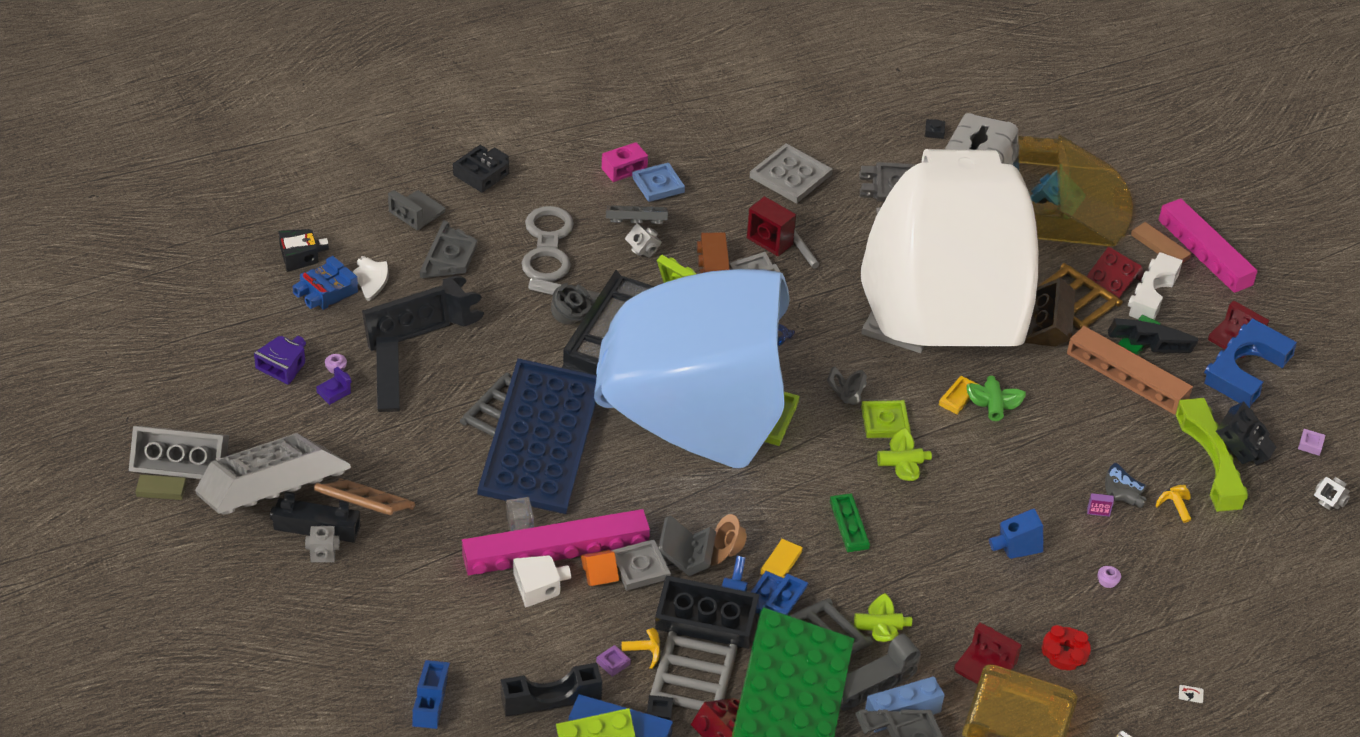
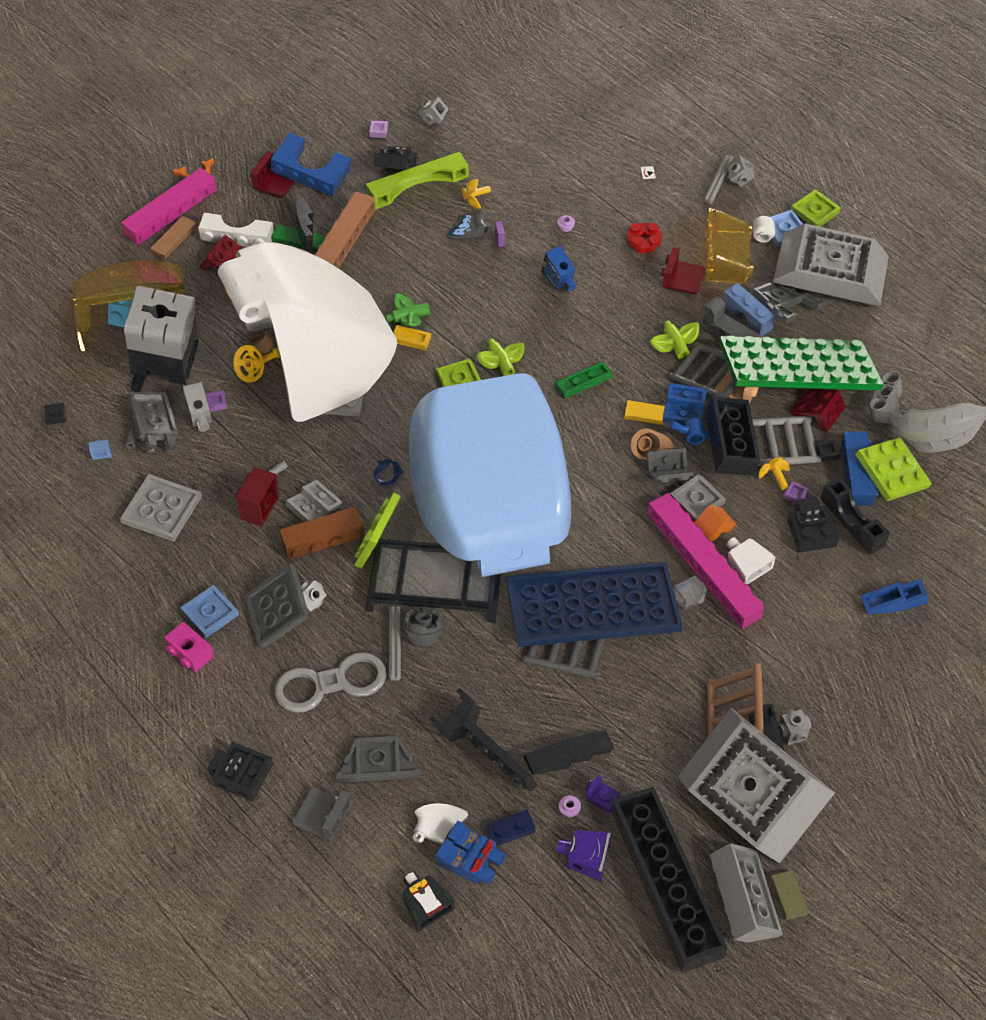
camera: 105 degrees left, 10 degrees up
(224, 397) = (668, 880): none -> black brick
(338, 321) = (511, 828): none -> clear blue plate
(557, 651) = (812, 526): none -> black piece
(877, 145) = (100, 449): none -> medium blue plate
(1260, 286) = (206, 164): none -> orange helmet

